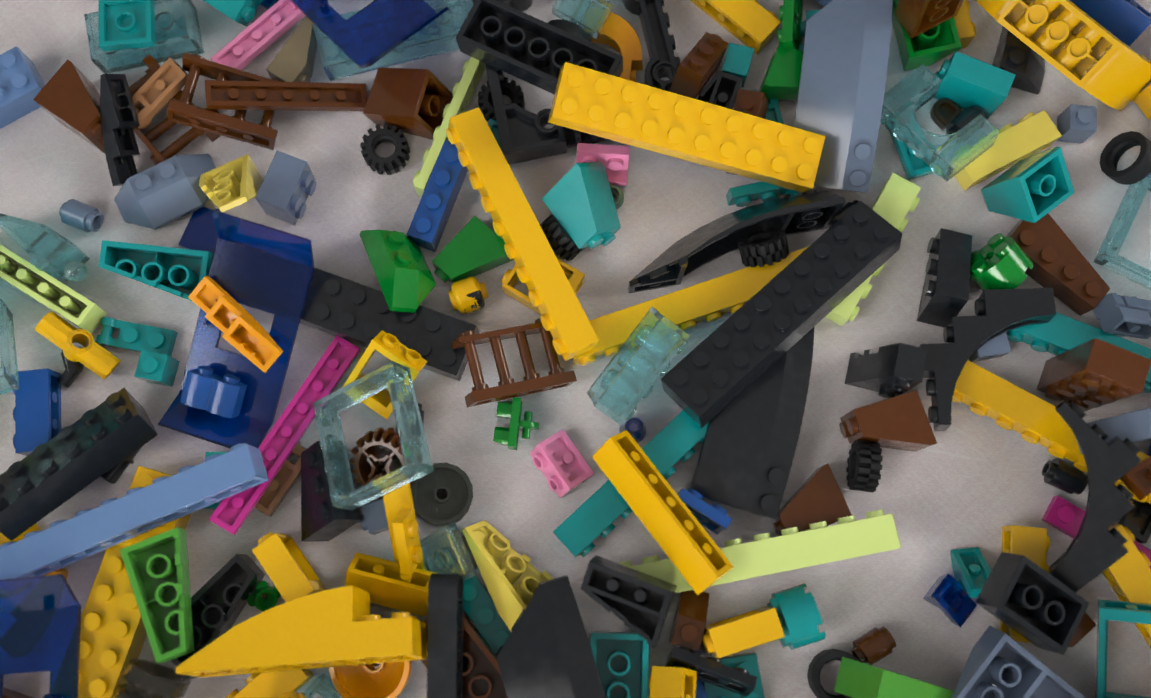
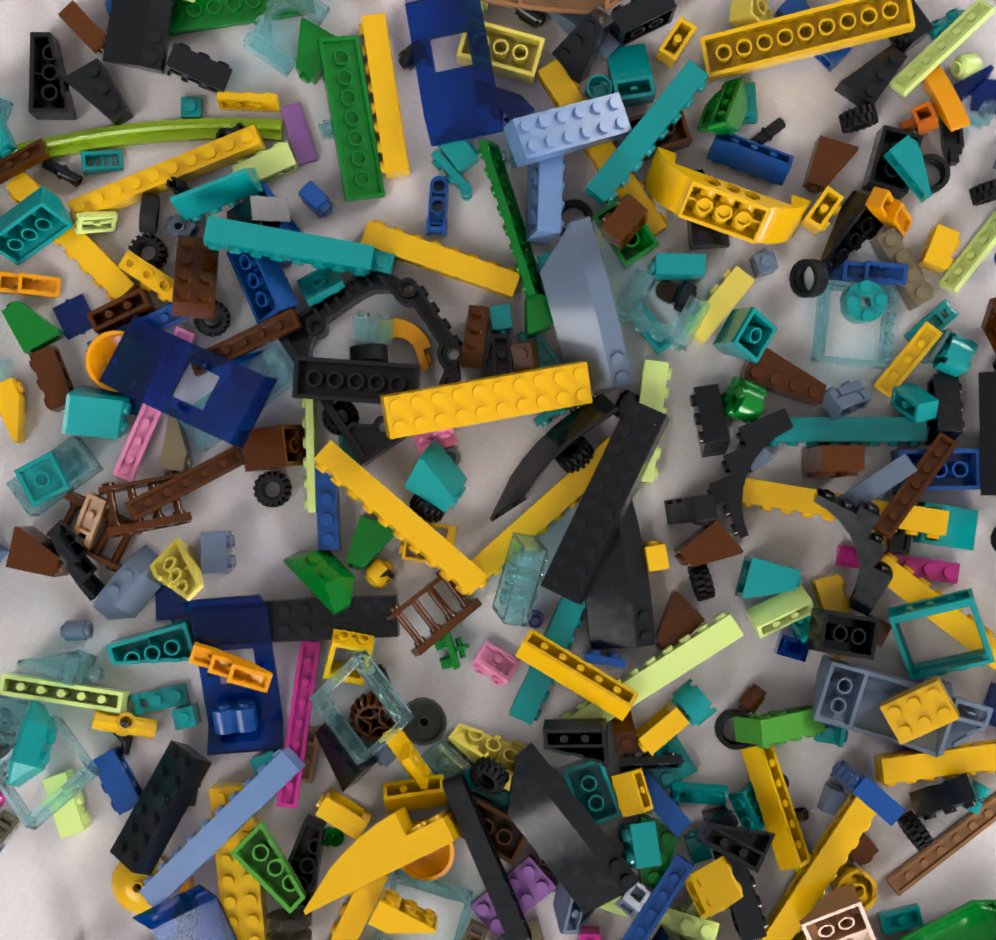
camera: 20 degrees left, 10 degrees up
(483, 591) = (489, 775): none -> black tyre
(819, 408) = (655, 555): none -> yellow brick
(951, 493) = (765, 578): none -> teal slope
(952, 546) = (779, 611): none -> yellowish green brick
(1064, 476) = (836, 531): black brick -> none

